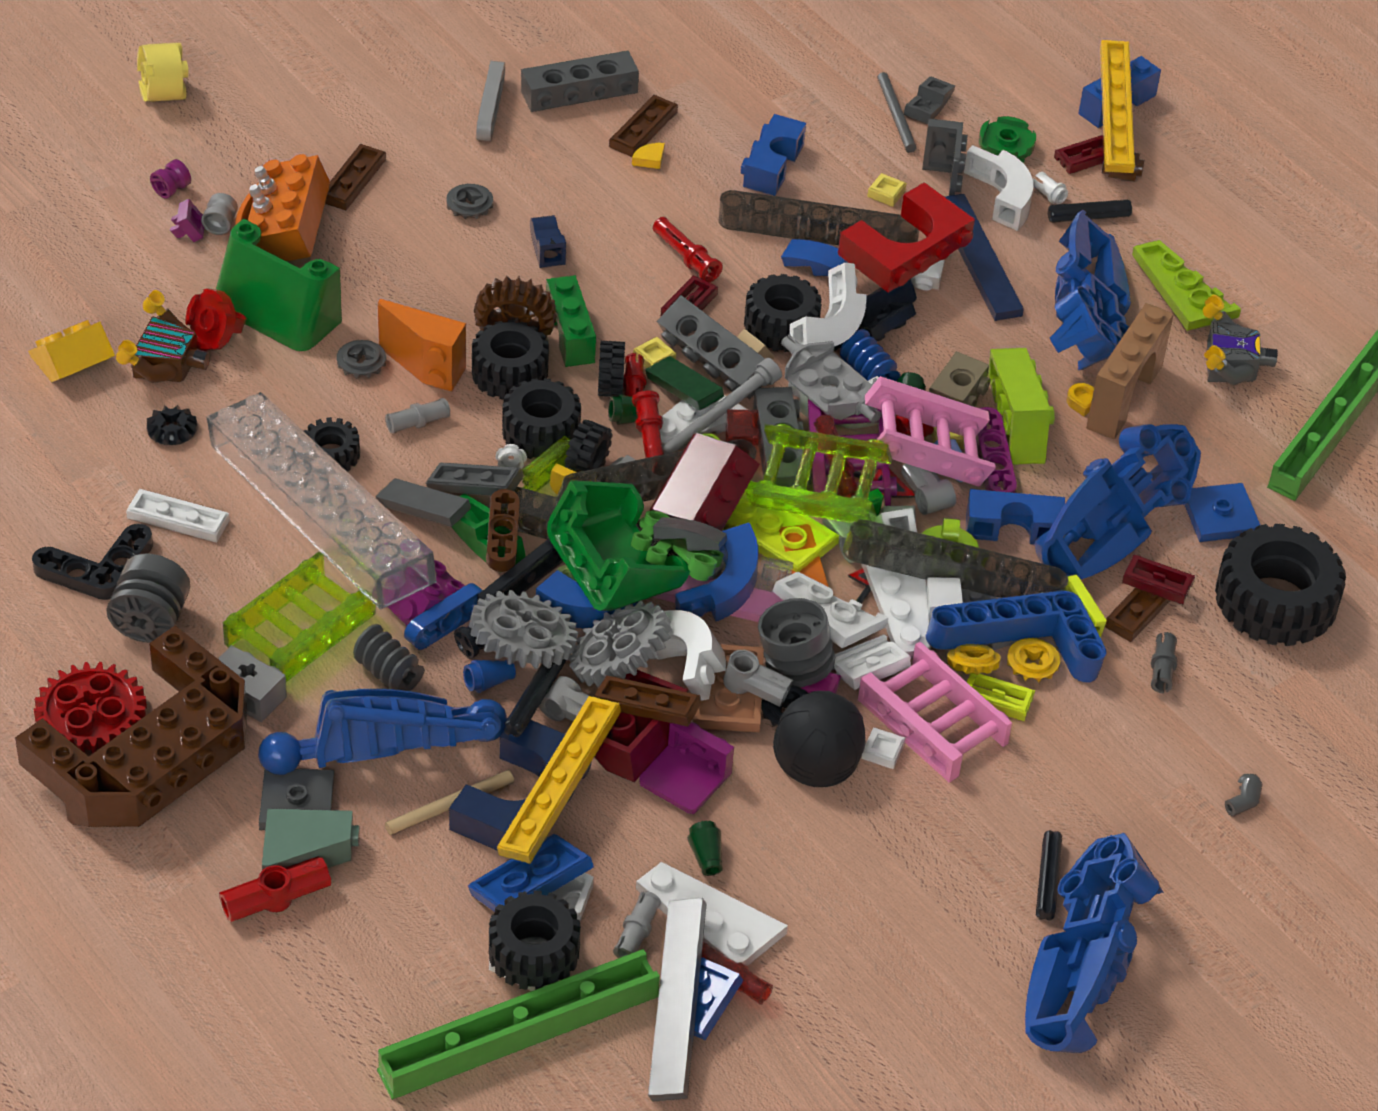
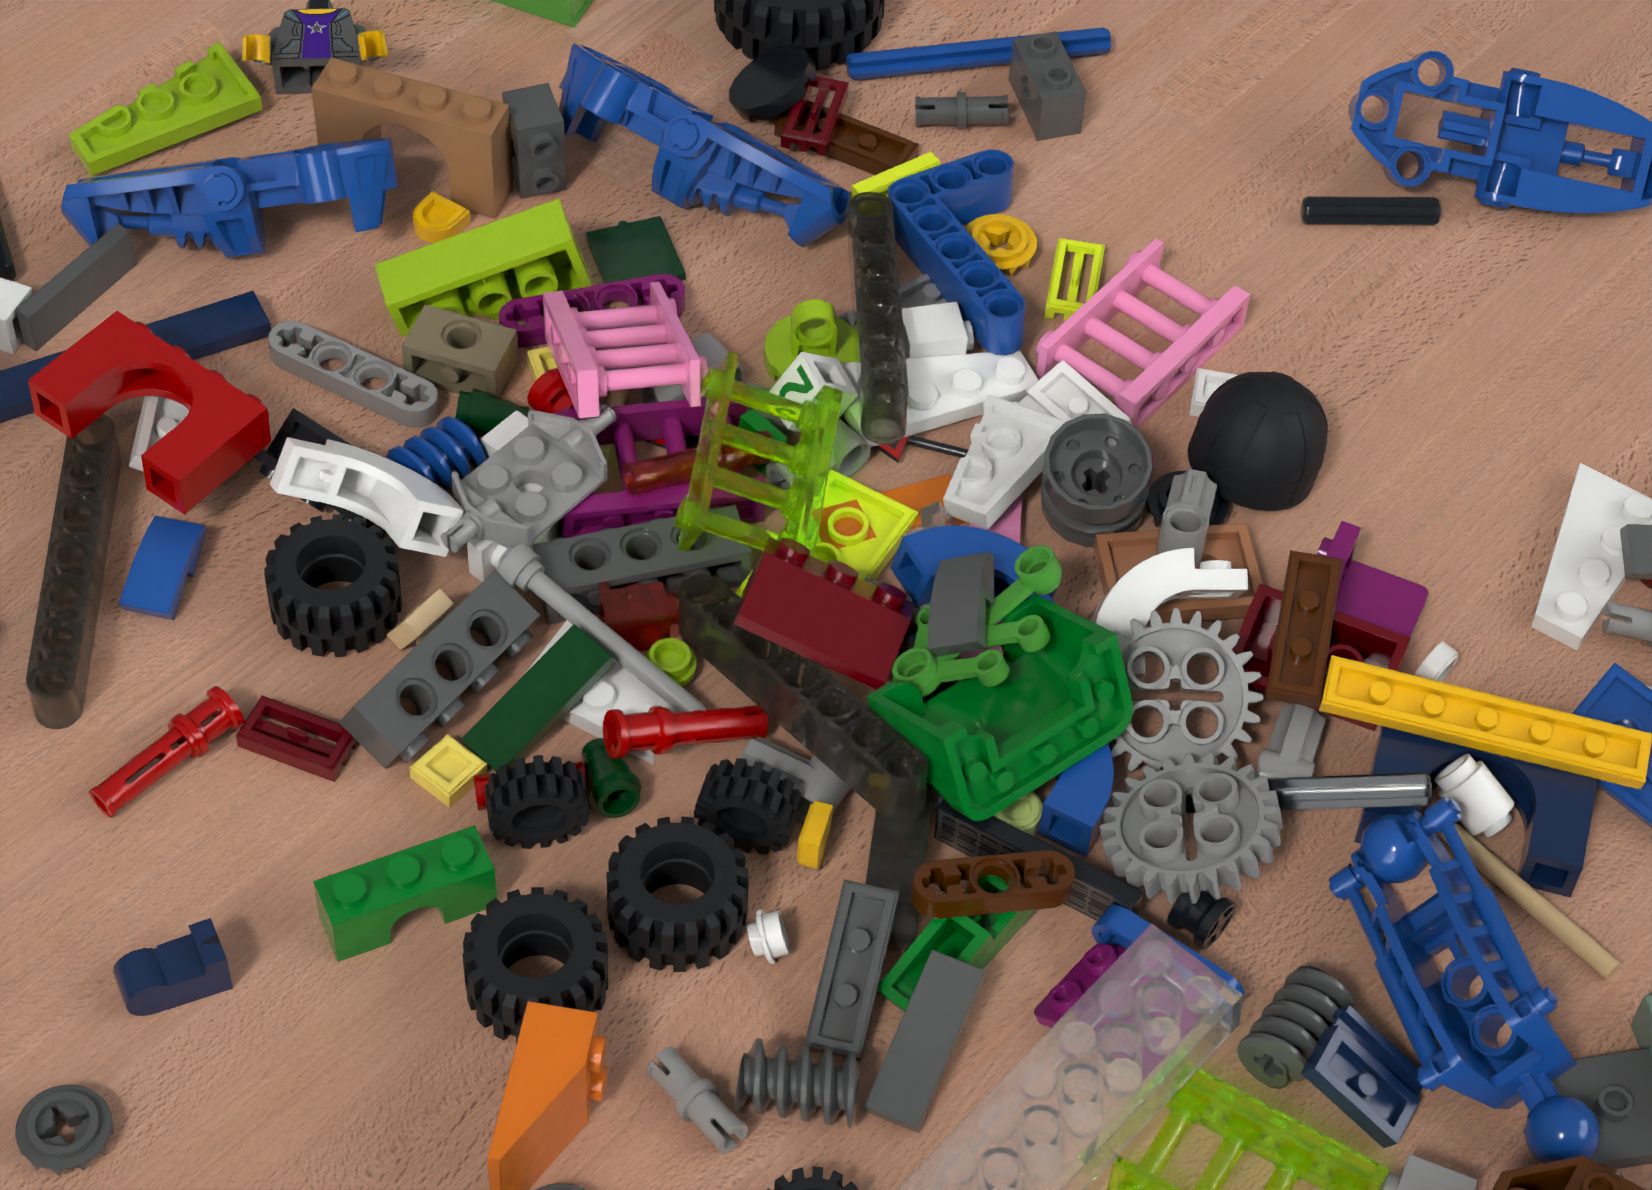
camera: 100 degrees left, 5 degrees up
(343, 669) = (1365, 1076): none -> dark blue plate
(411, 449) = (798, 1083): none -> dark grey piece
(485, 674) = (1274, 893): blue cone -> none
(516, 302) = (432, 962): reddish brown gear -> none
(519, 779) = (1479, 795): none -> white brick
(539, 471) = (786, 875): clear neon green tile -> none
(627, 794) = (1438, 663): none -> white tile
(707, 846) = (1486, 565): dark green cone -> none
(949, 343) = (357, 368): none -> light grey beam
(974, 659) = (1046, 283): yellow gear -> none
(993, 509) = (732, 300): blue arch -> none
(1029, 235) = (76, 287): none -> dark grey tile
(1044, 479) = (634, 250): none -> clear green piece
(1125, 413) = (536, 140): none -> dark grey brick
(1181, 707) = (1047, 86): none -> dark grey brick
(1188, 560) = (772, 82): none -> black tile
(1221, 512) = (658, 53): blue plate -> none
(1226, 688) = (964, 54): none -> blue axle
(1249, 795) = (1162, 29): dark grey arm -> none

